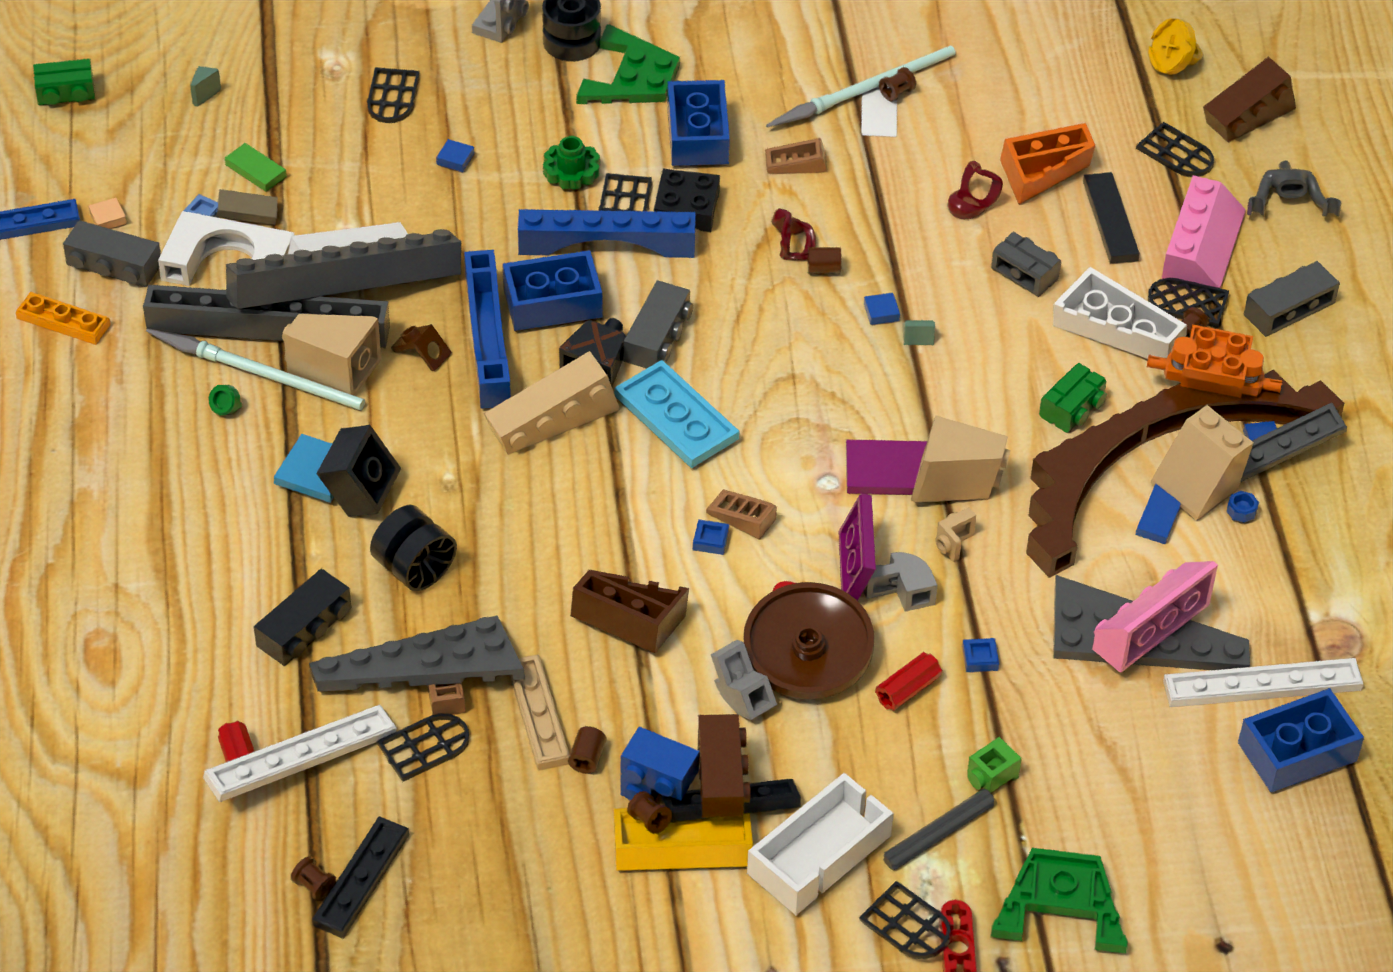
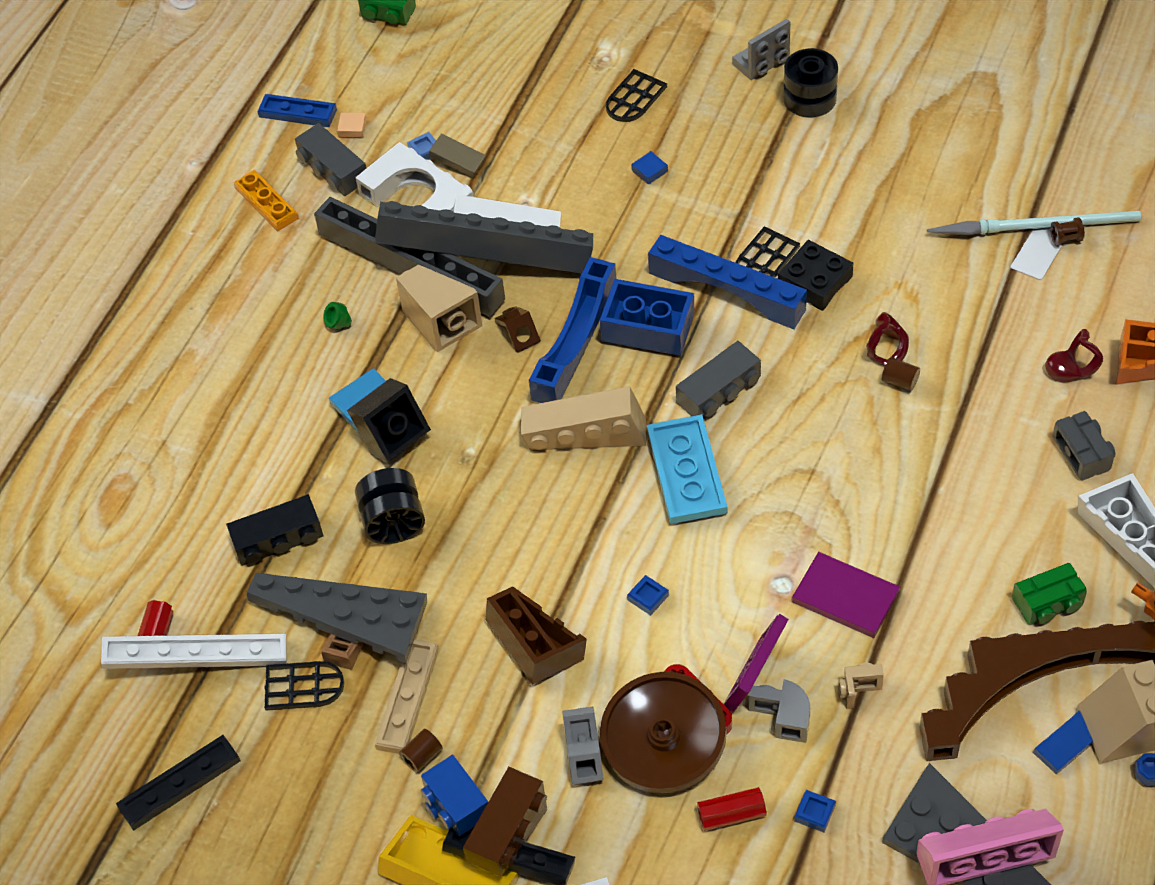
camera: 35 degrees right, 5 degrees up
(204, 84) = (488, 40): sand green slope -> none
(214, 353) = (349, 265): light aqua piece -> none
(255, 167) = (487, 123): bright green tile -> none
(313, 878) = (137, 766): reddish brown bush -> none
(571, 163) = (737, 208): green plant -> none
(603, 341) = (653, 384): black torso -> none
(641, 75) = (846, 150): green wing -> none
(654, 816) = (428, 836): reddish brown bush -> none
(698, 122) = (863, 207): blue brick -> none
(747, 523) = (690, 602): medium nougat slope -> none
(812, 159) = (950, 278): medium nougat slope -> none
(881, 308) = (927, 438): blue tile -> none
(918, 332) = (946, 473): sand green slope -> none
(959, 463) = (895, 617): tan slope -> none

